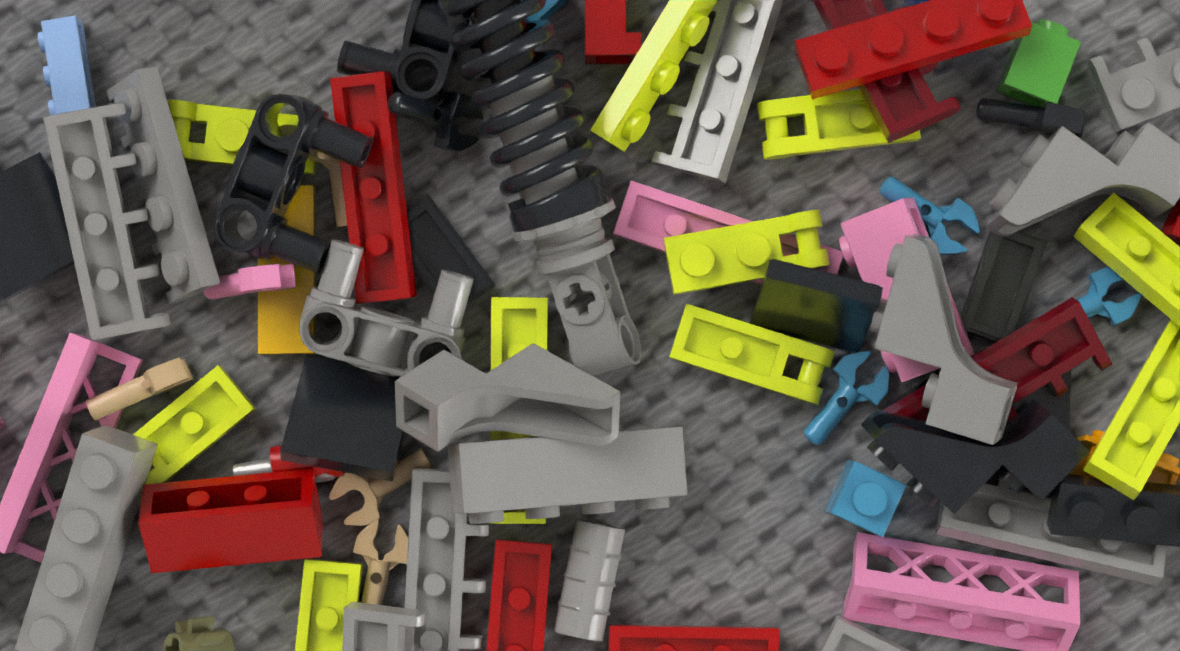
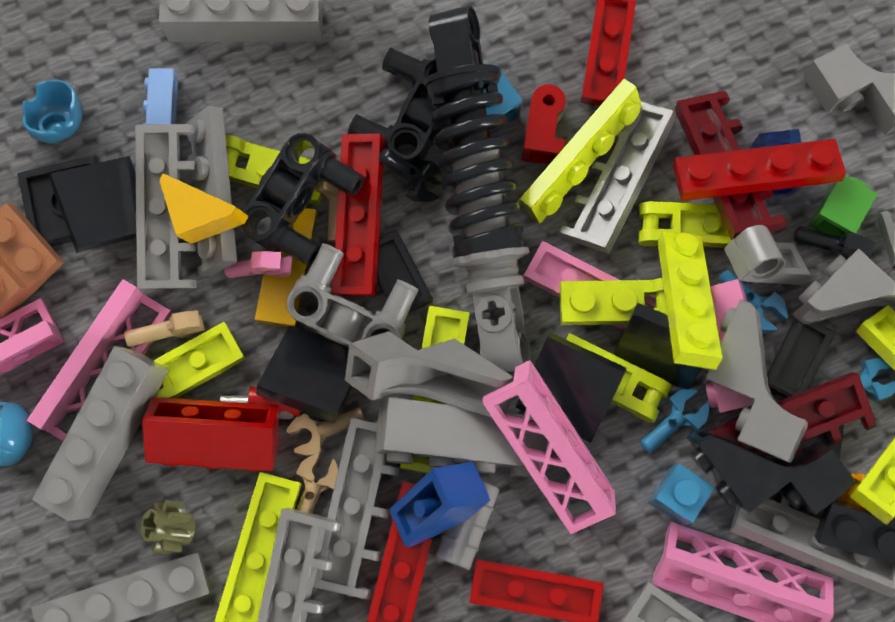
camera: 10 degrees right, 10 degrees down
(151, 229) = (196, 213): none -> yellow slope
(549, 565) = (439, 502): none -> blue slope
(698, 456) = (563, 438): none -> bright pink fence
(699, 378) = (579, 382): none -> black tile
(838, 241) = (689, 300): none -> neon yellow plate
(938, 161) = (761, 259): none -> light grey plate

